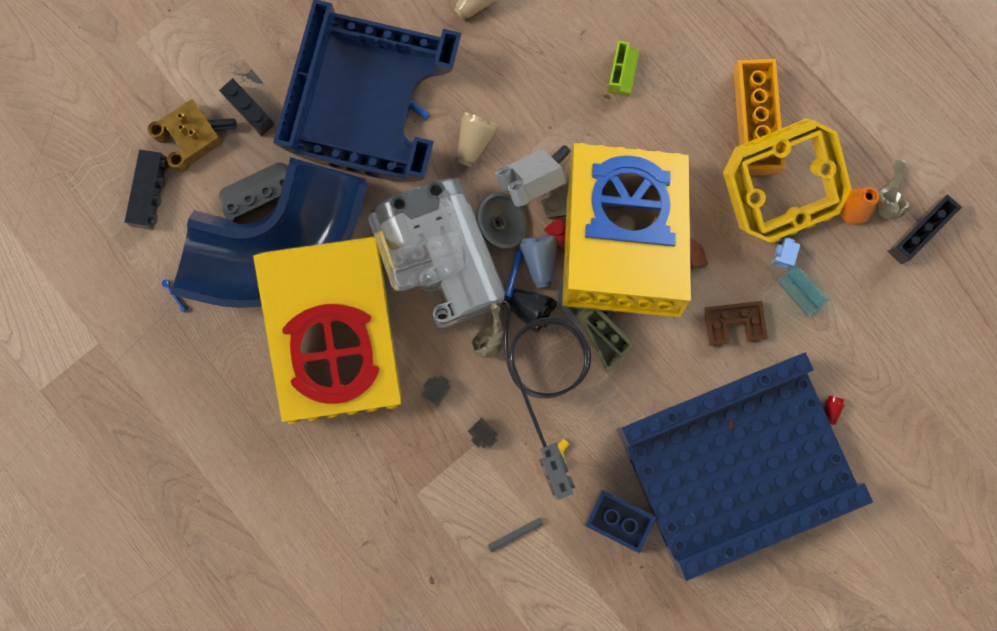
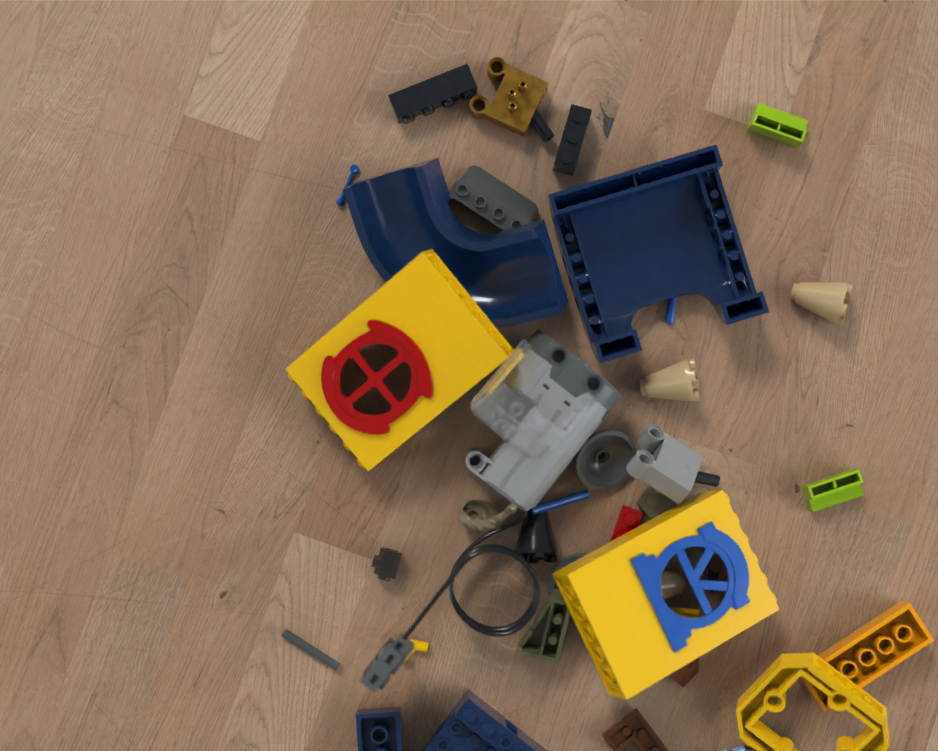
camera: 60 degrees right, 5 degrees up
(436, 389) = (403, 493): clear smoke brick -> none
(540, 258) = (591, 519): sand blue cone -> none

